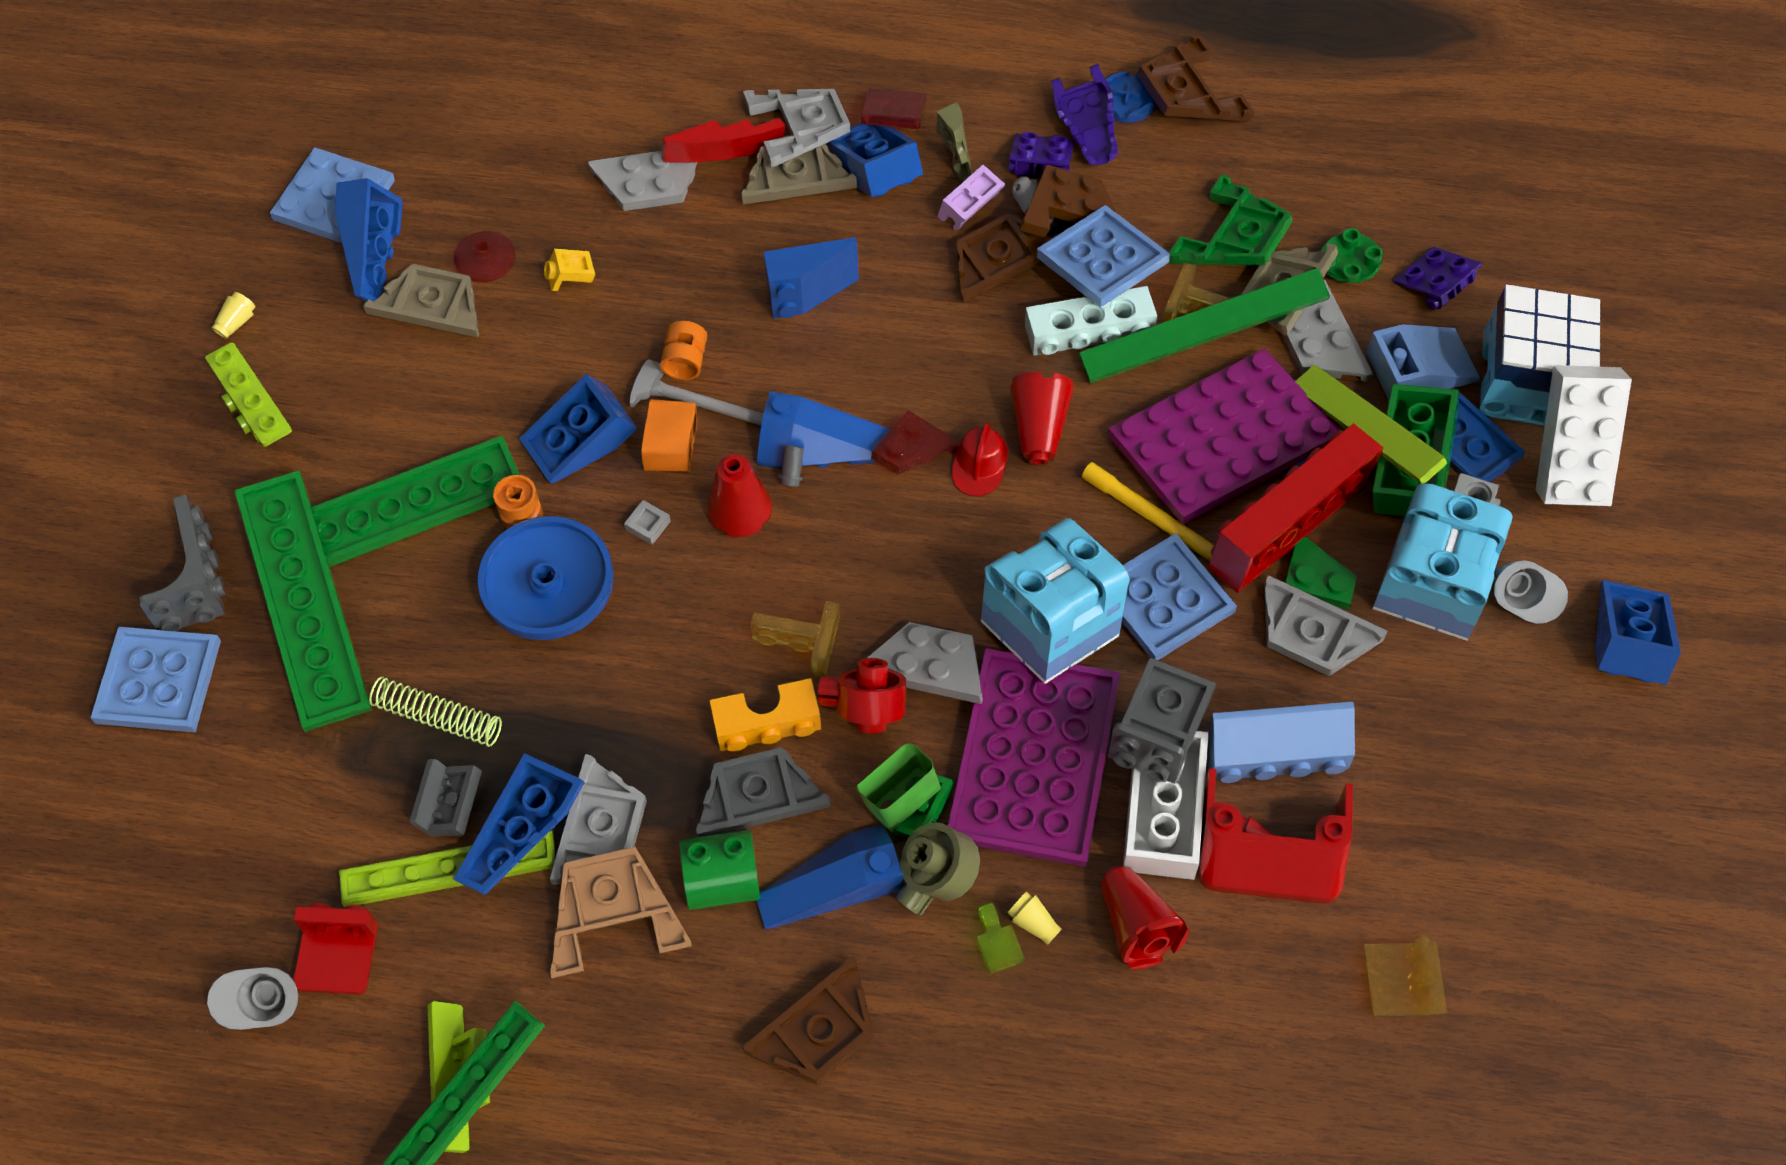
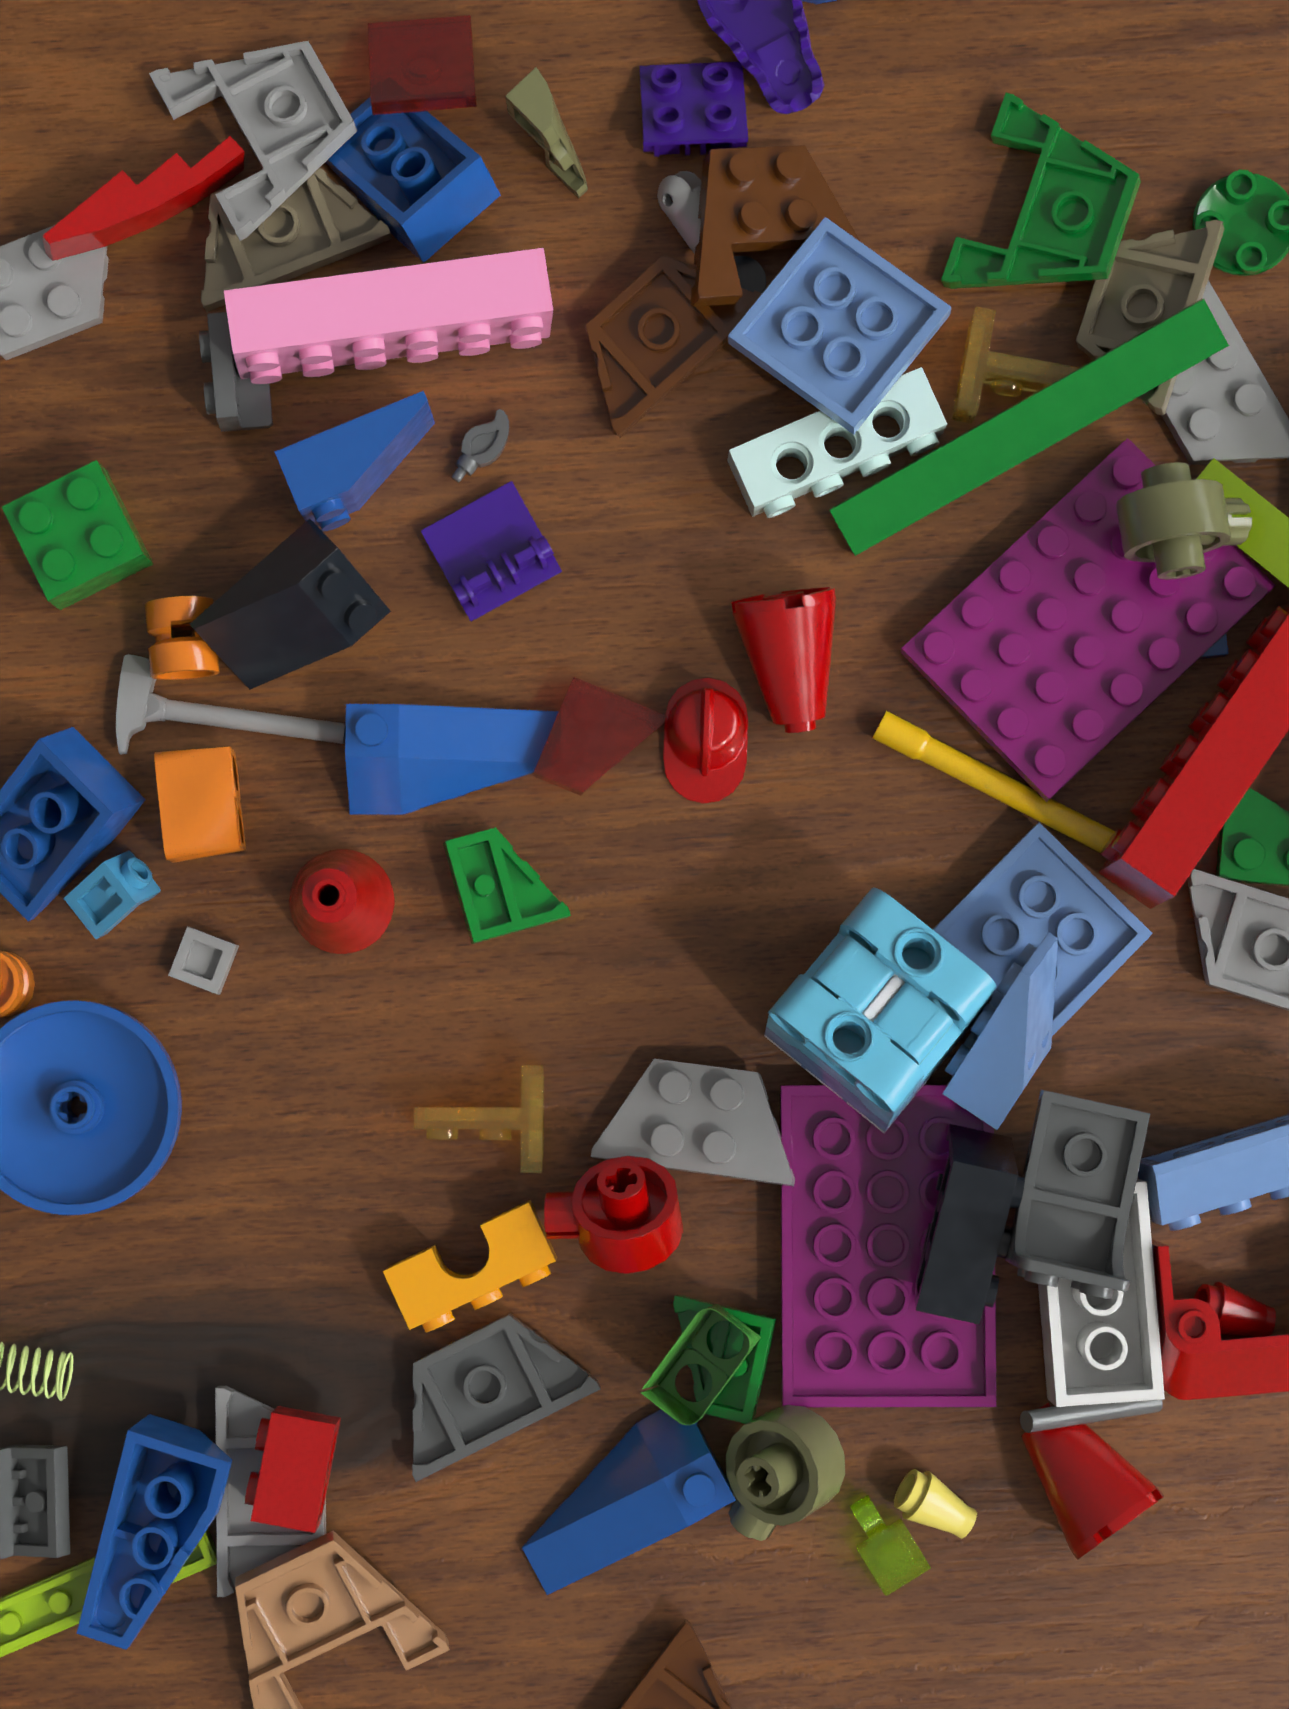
camera: 15 degrees left, 25 degrees up
(602, 473) = (112, 893): none -> dark azure bracket
(622, 801) = (293, 1468): none -> red brick
(639, 291) = (77, 535): none -> green brick
(719, 869) = (460, 1524): green brick -> none
(750, 342) = (290, 609): none -> black slope
(752, 230) = (232, 399): none -> dark grey bracket
(791, 465) = (410, 831): dark grey pin -> none
(835, 513) = (498, 888): none -> green wing
(846, 207) = (390, 315): none -> bright pink brick
(875, 343) = (491, 551): none -> dark purple hinge
(883, 292) = (482, 445): none -> dark grey piece
(970, 196) = (594, 232): lavender hinge -> none
(1086, 738) = (969, 1225): none -> black wedge
(1135, 628) = (1007, 1037): none -> medium blue slope
(1149, 871) = (1066, 1416): none -> dark grey bar
(1286, 376) = (1179, 520): none -> olive piece

